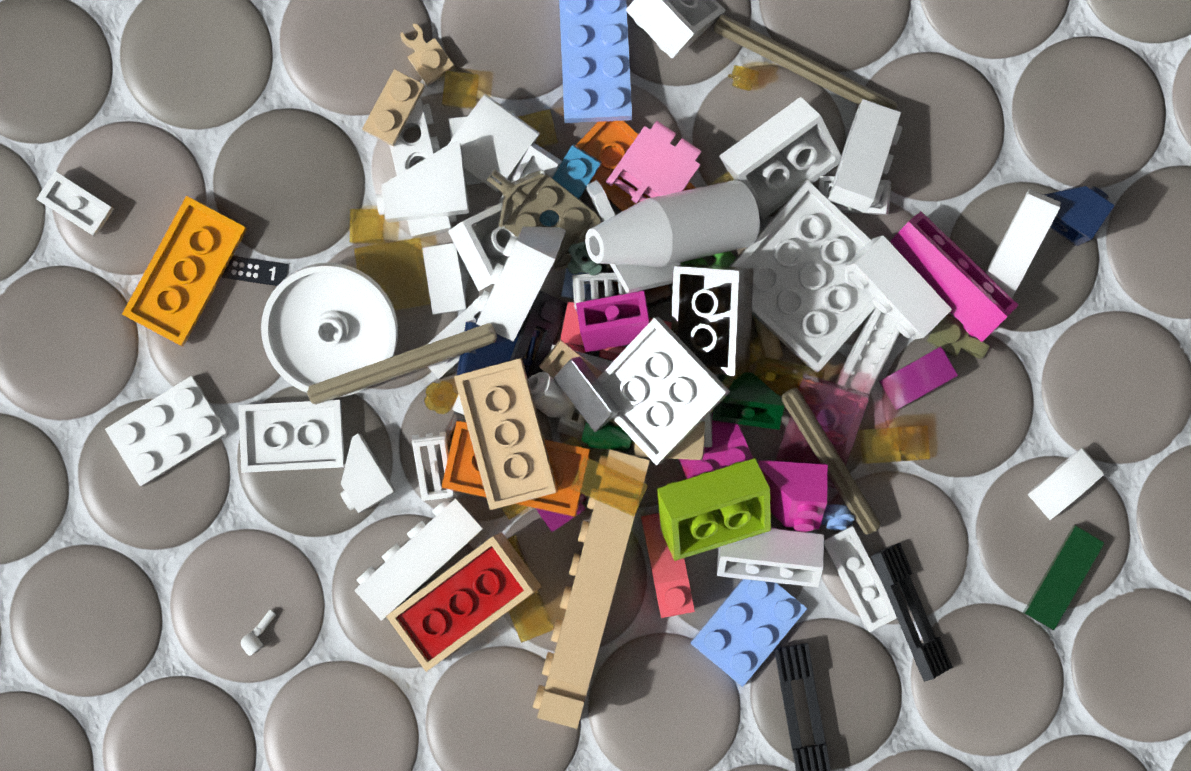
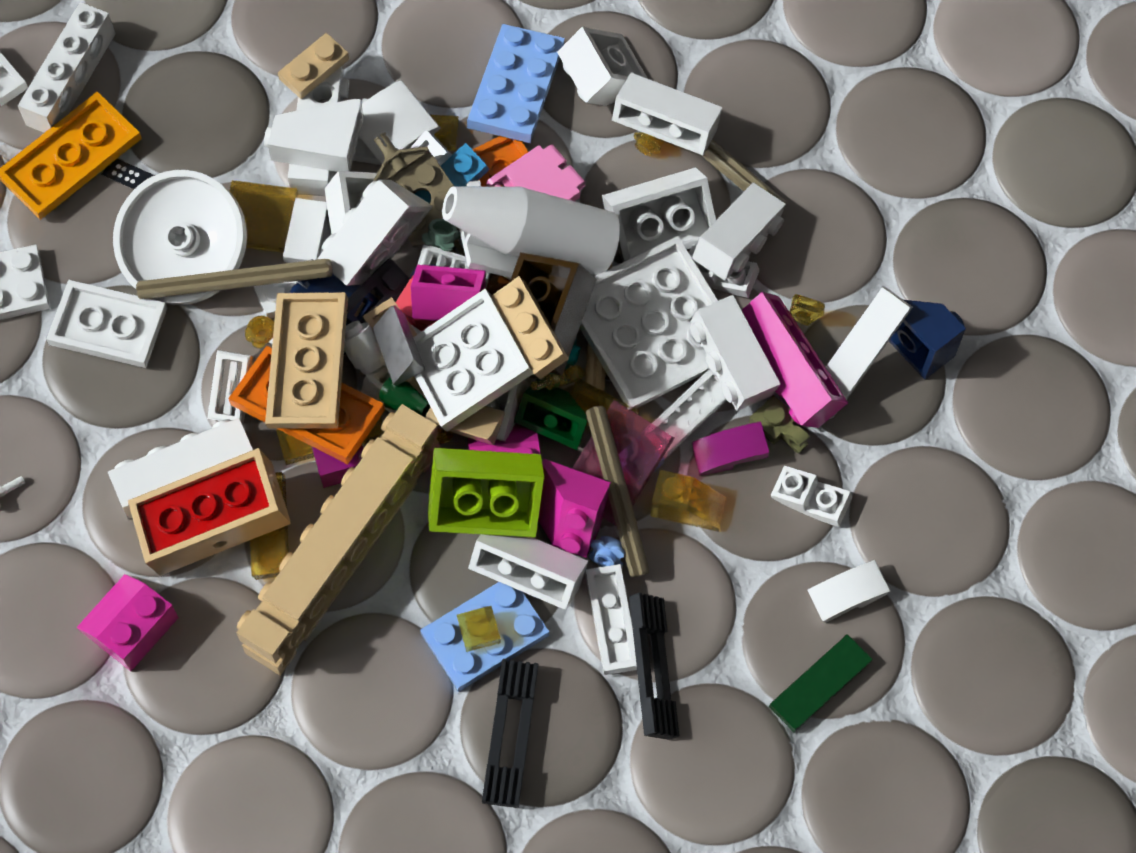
camera: 20 degrees right, 20 degrees down
(147, 179) = (67, 68): none -> white brick
(363, 477) = (159, 379): white slope -> none
(366, 226) = (251, 166): clear yellow tile -> none
(422, 718) = (129, 621): none -> dark pink slope
(429, 58) = (363, 46): tan plate -> none
(460, 90) = (380, 77): clear yellow tile -> none
(609, 486) = (388, 433): clear yellow tile -> none
(669, 576) = (420, 557): coral slope -> none
(710, 346) = (529, 327): none -> tan plate
(745, 630) = (478, 628): none -> clear yellow plate
(758, 51) = (666, 113): none -> white brick
(951, 216) = (806, 309): none -> clear yellow tile
(1005, 400) = (808, 496): none -> white slope

